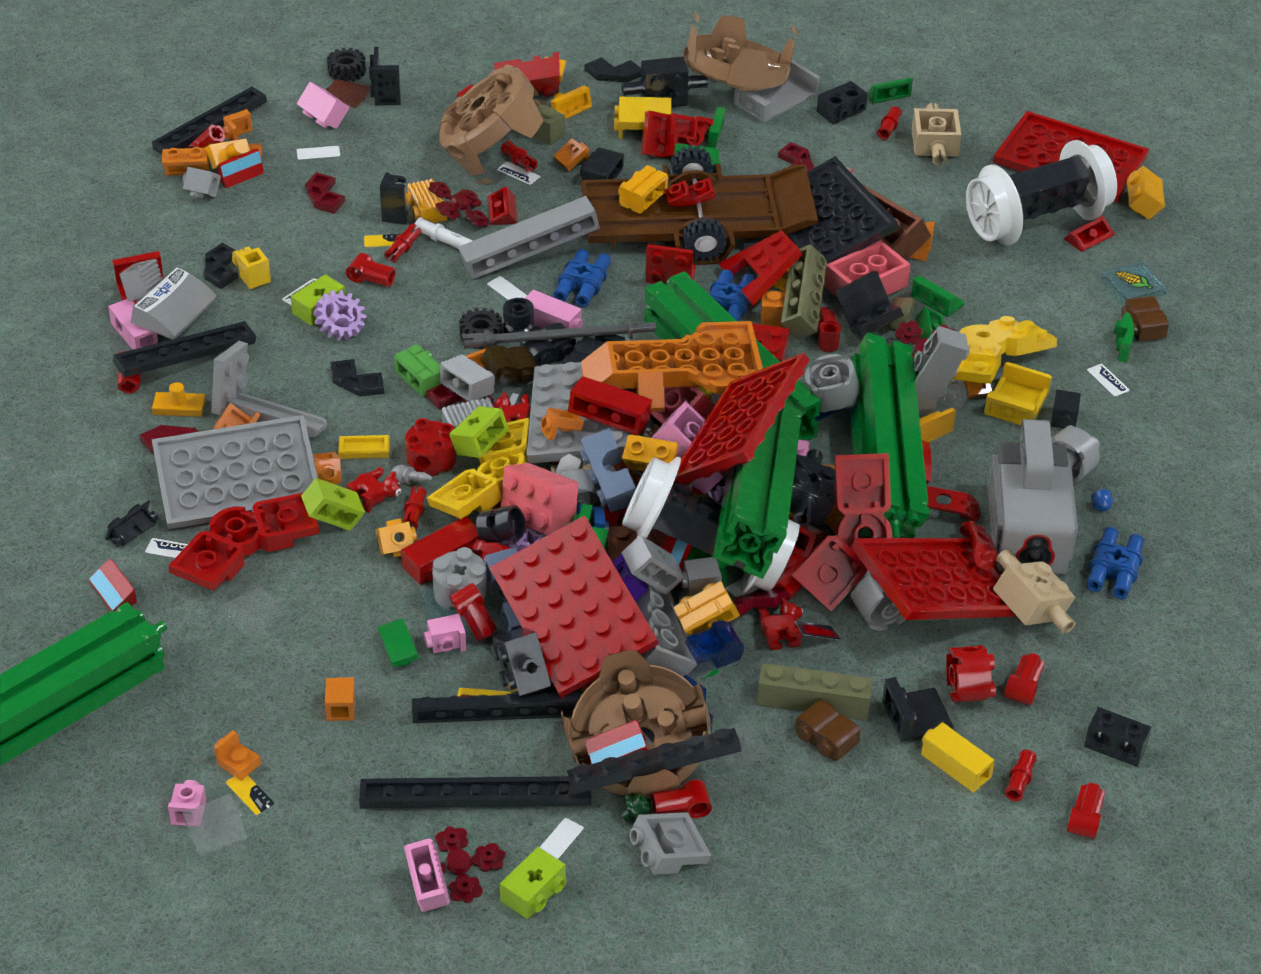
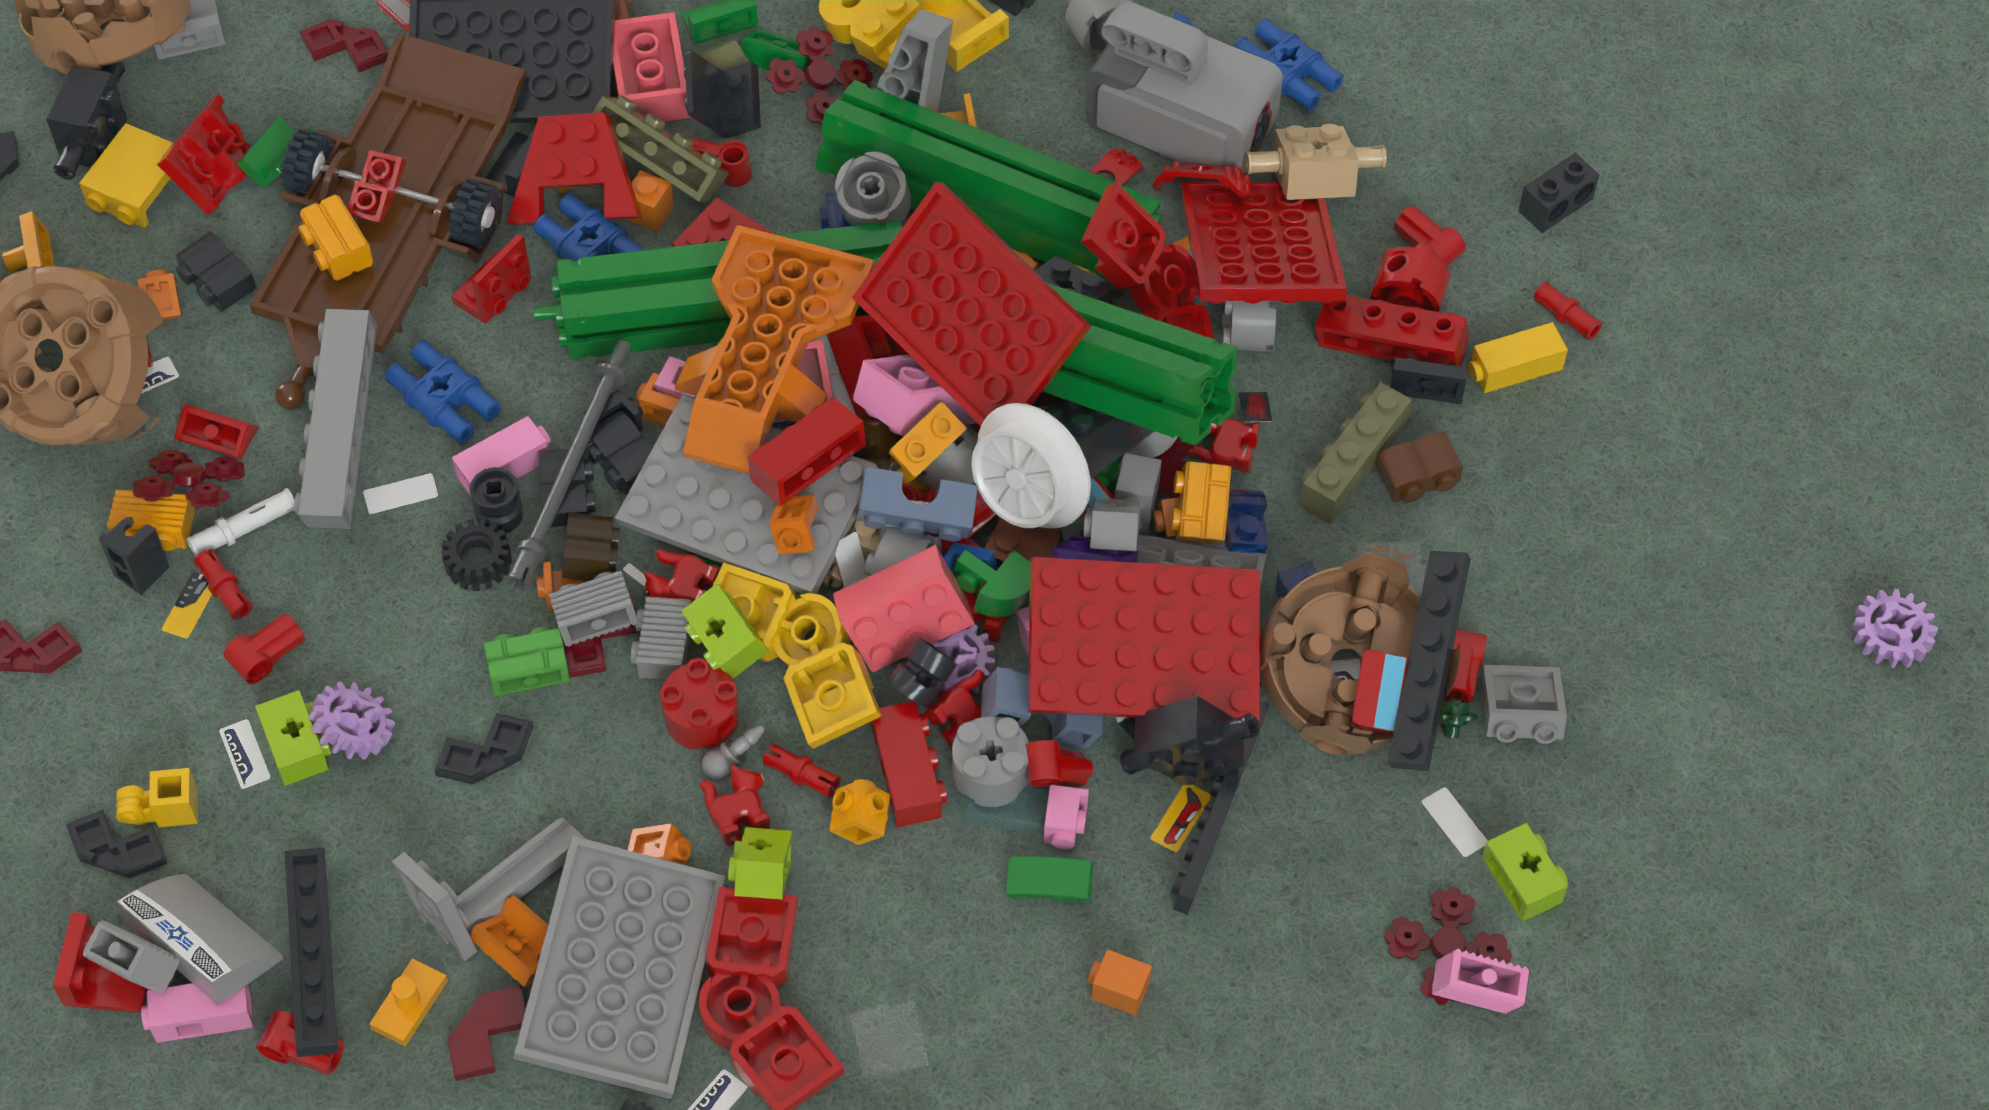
camera: 65 degrees left, 15 degrees up
(364, 447) = (636, 790): yellow tile -> none
(469, 792) = (1344, 891): black plate -> none
(715, 129) = (202, 90): green tile -> none
(925, 677) = (1392, 331): none -> red brick
(1086, 814) = (1656, 281): red piece -> none

